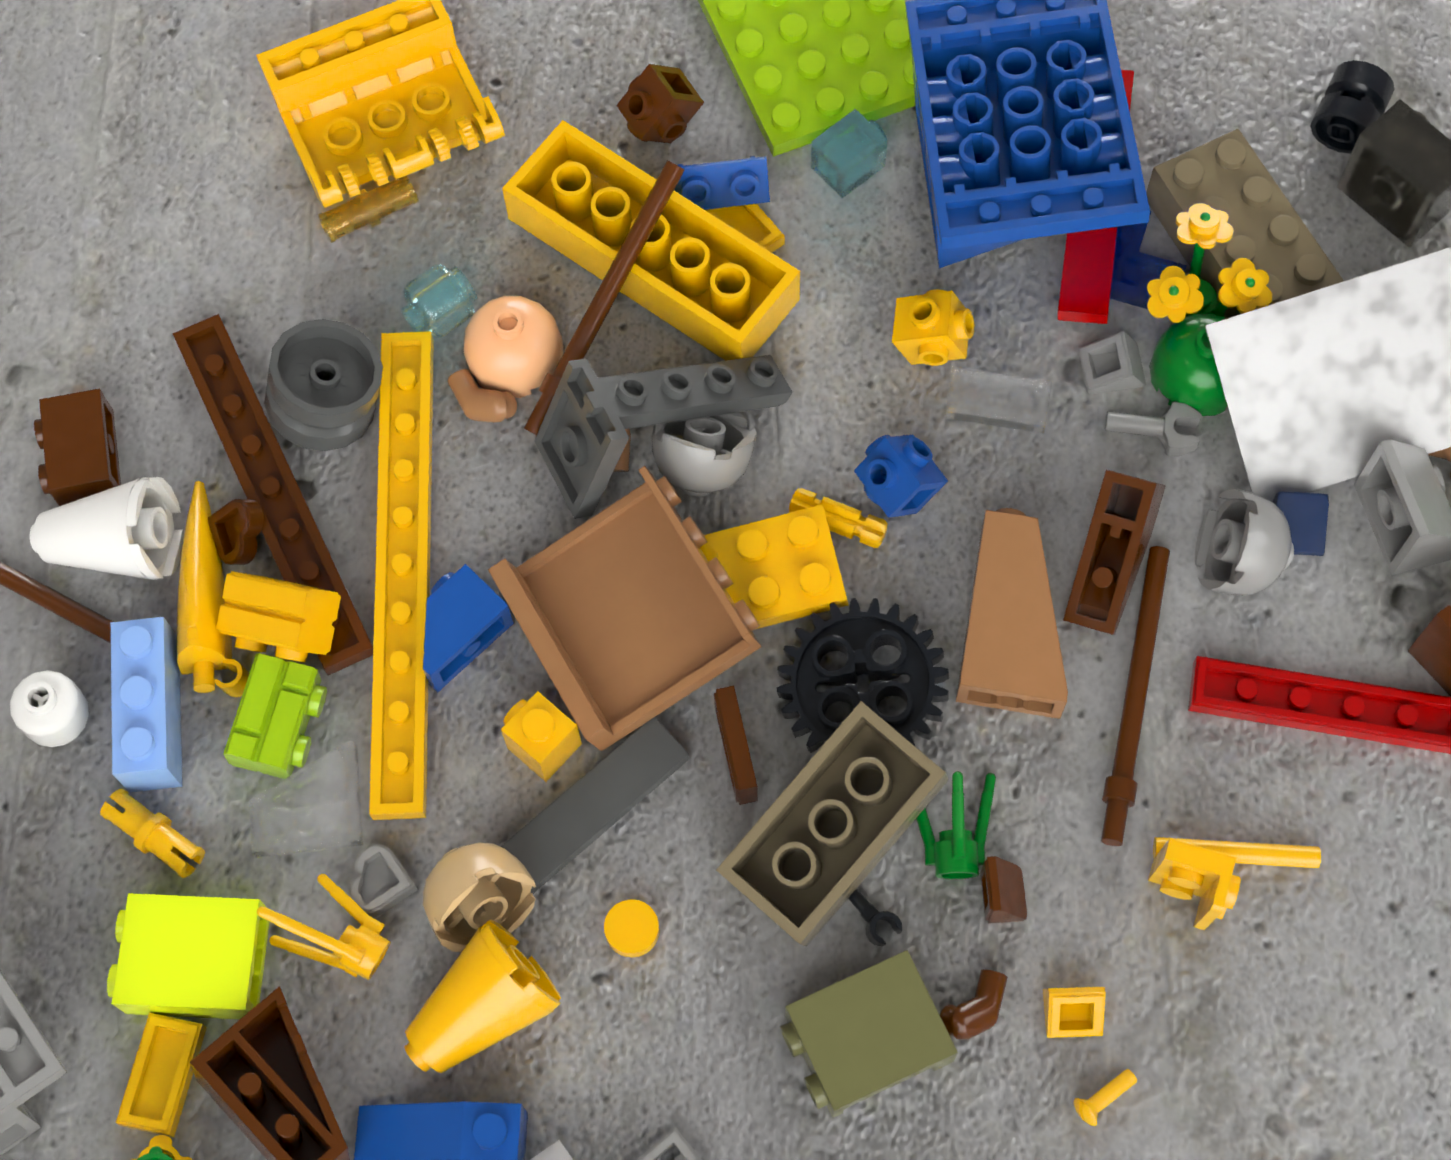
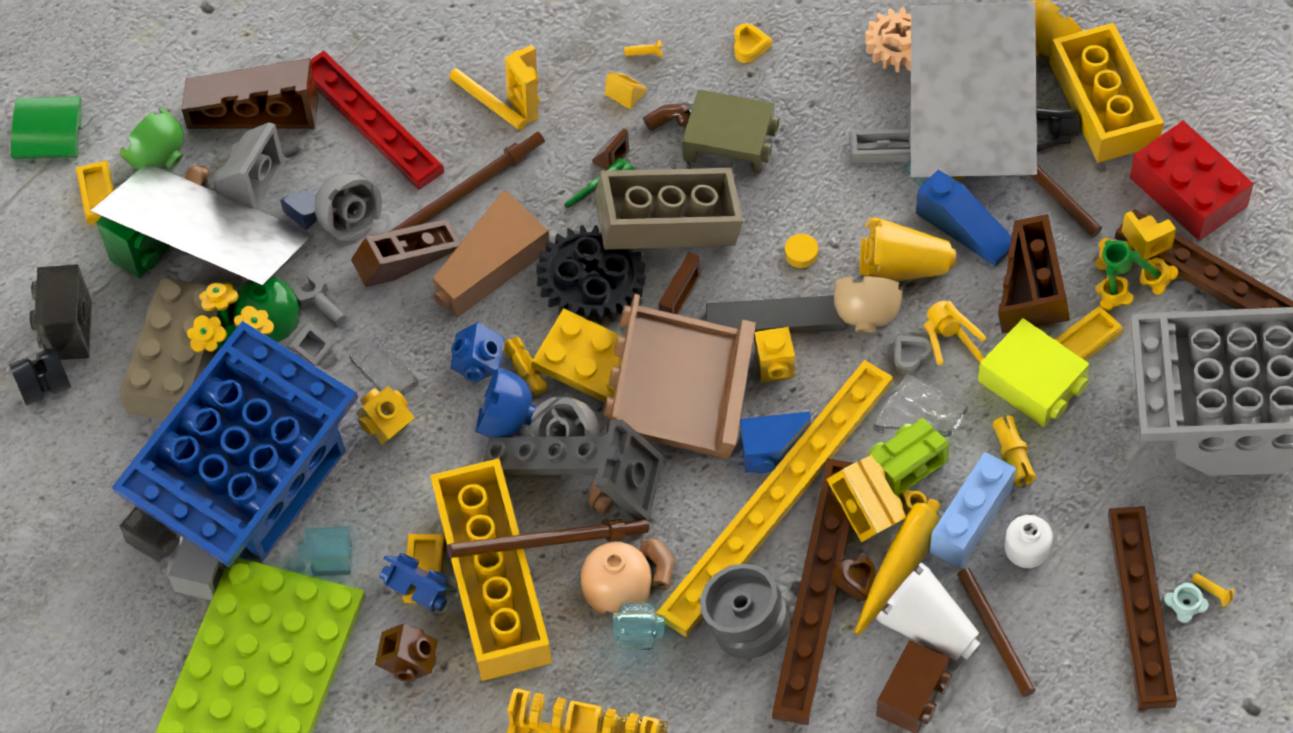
camera: 140 degrees left, 10 degrees down
(804, 434) = (505, 406): none -> blue cylinder

